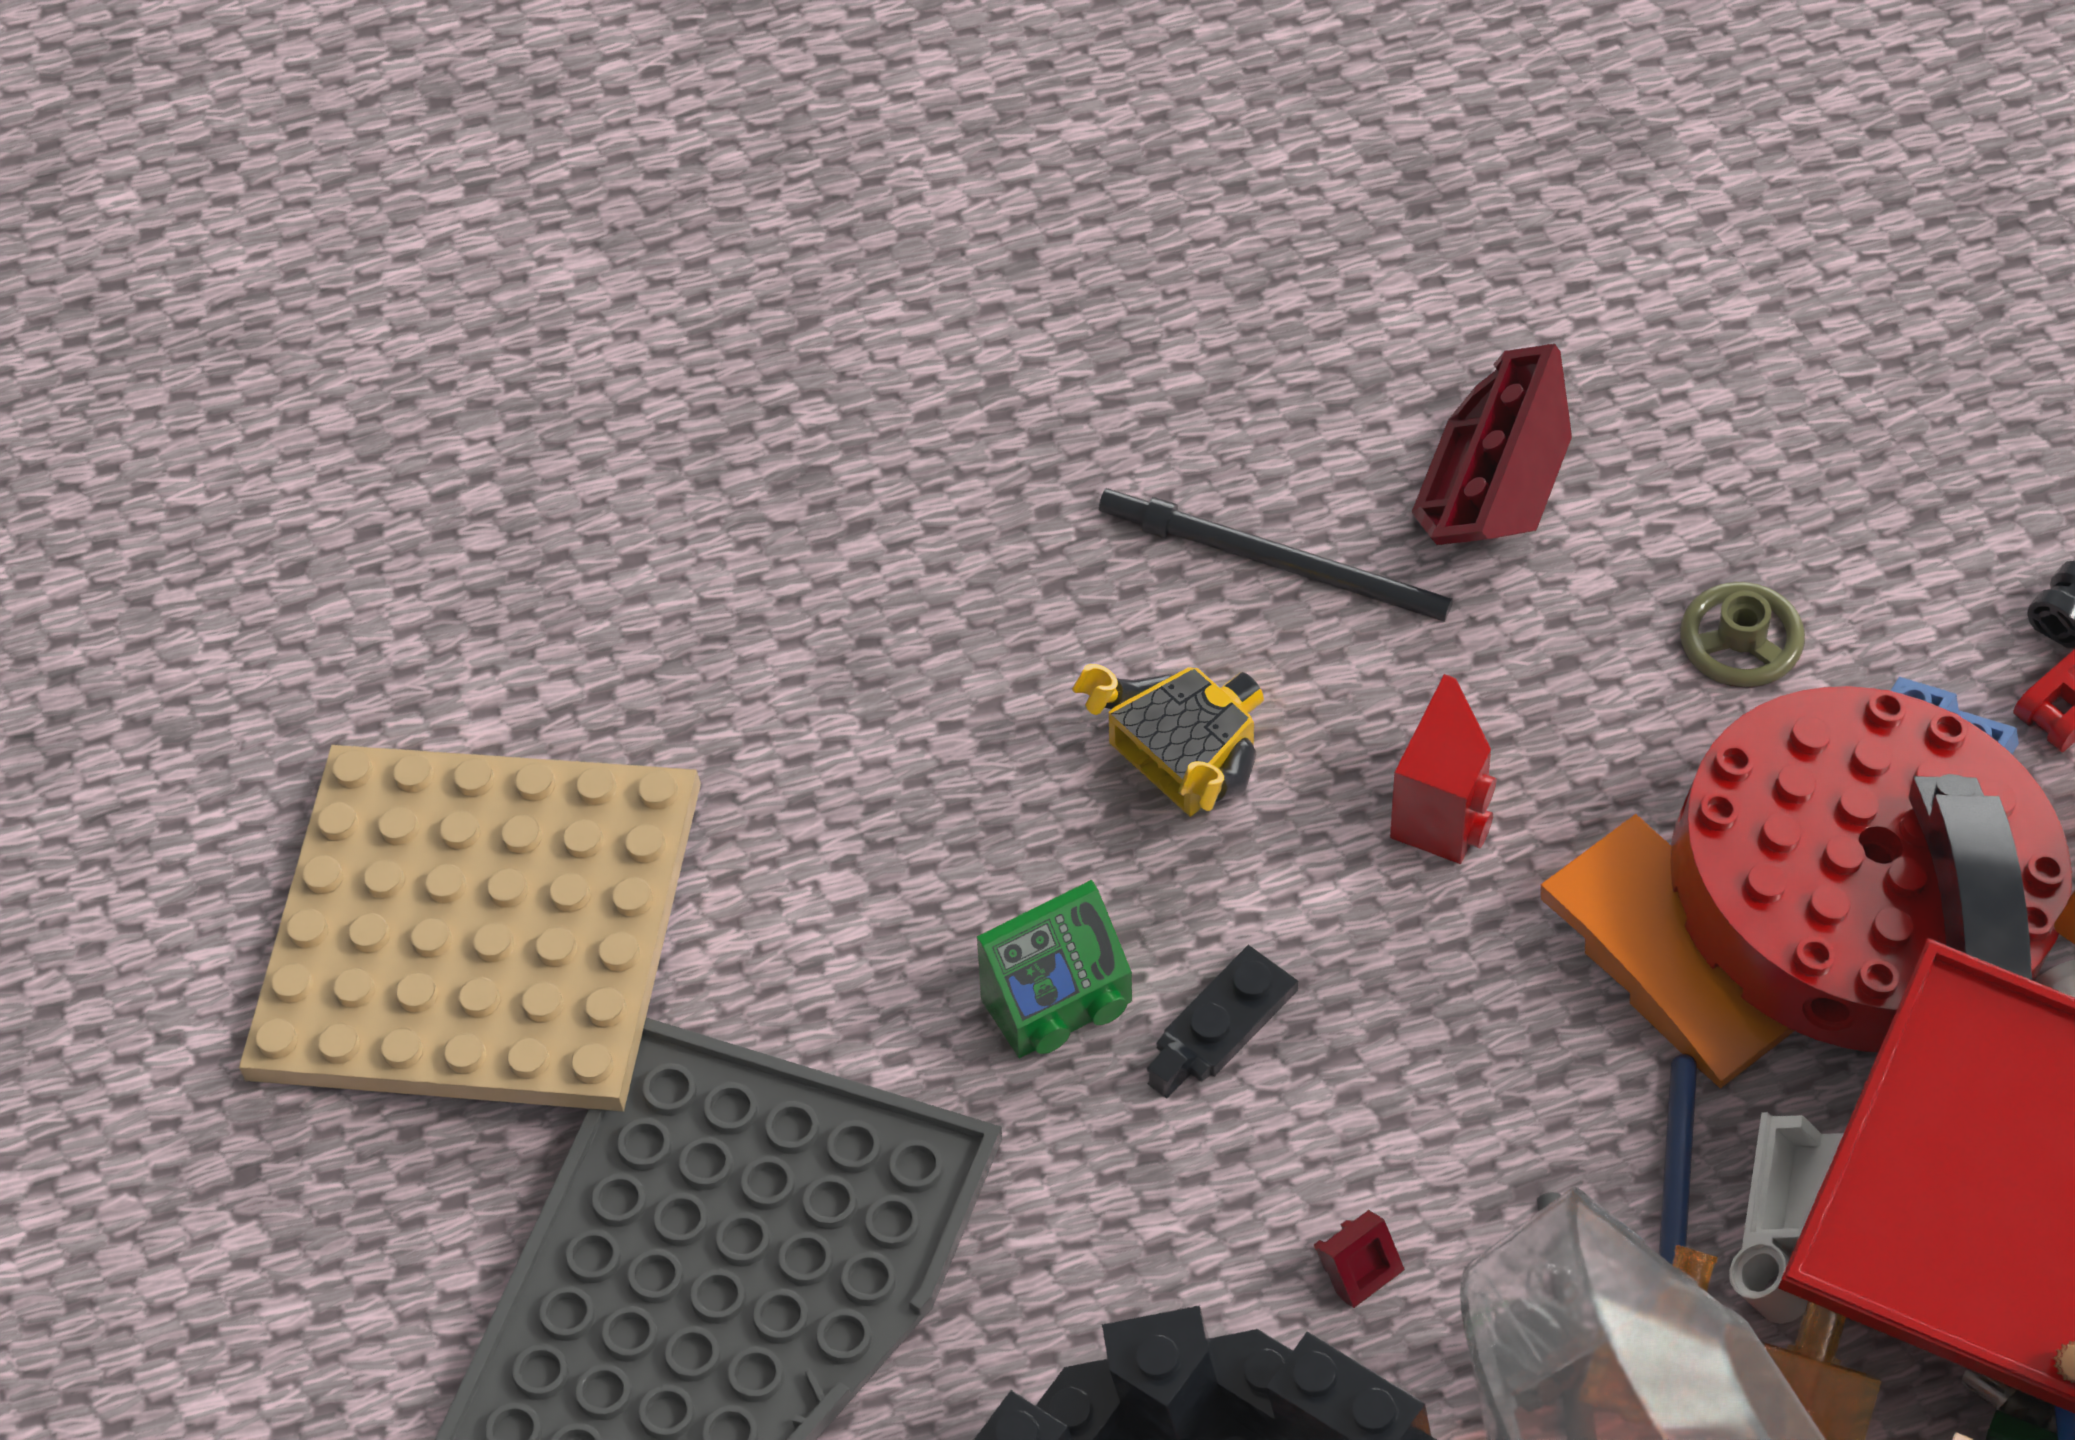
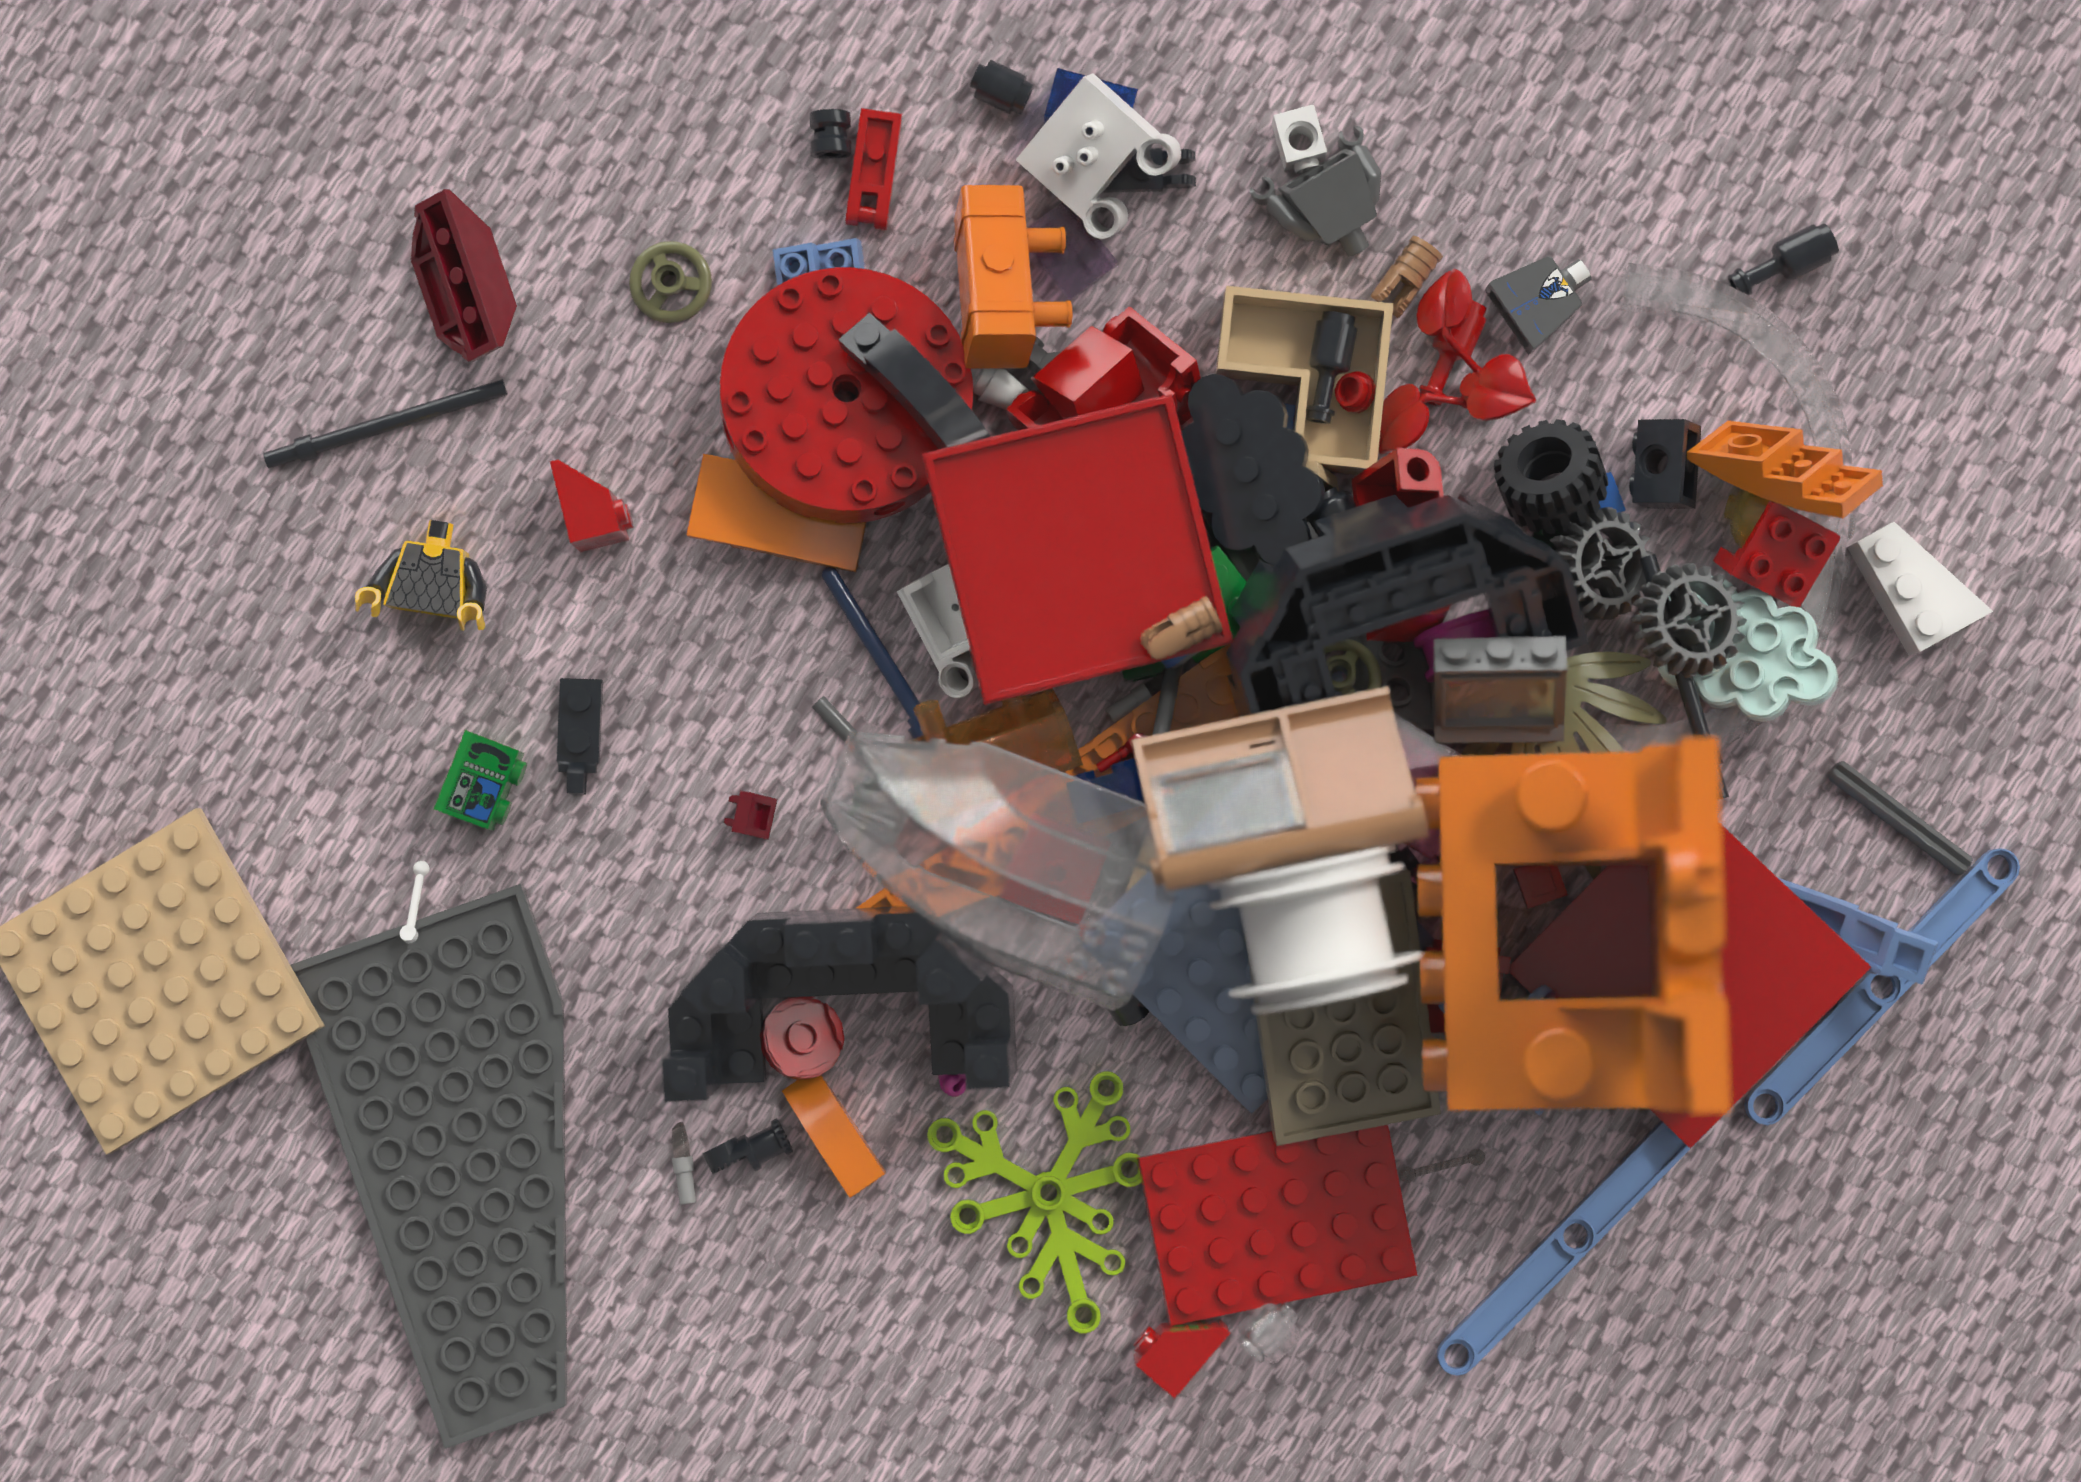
camera: 40 degrees left, 30 degrees up
(819, 1078) = (409, 933): none -> white hinge

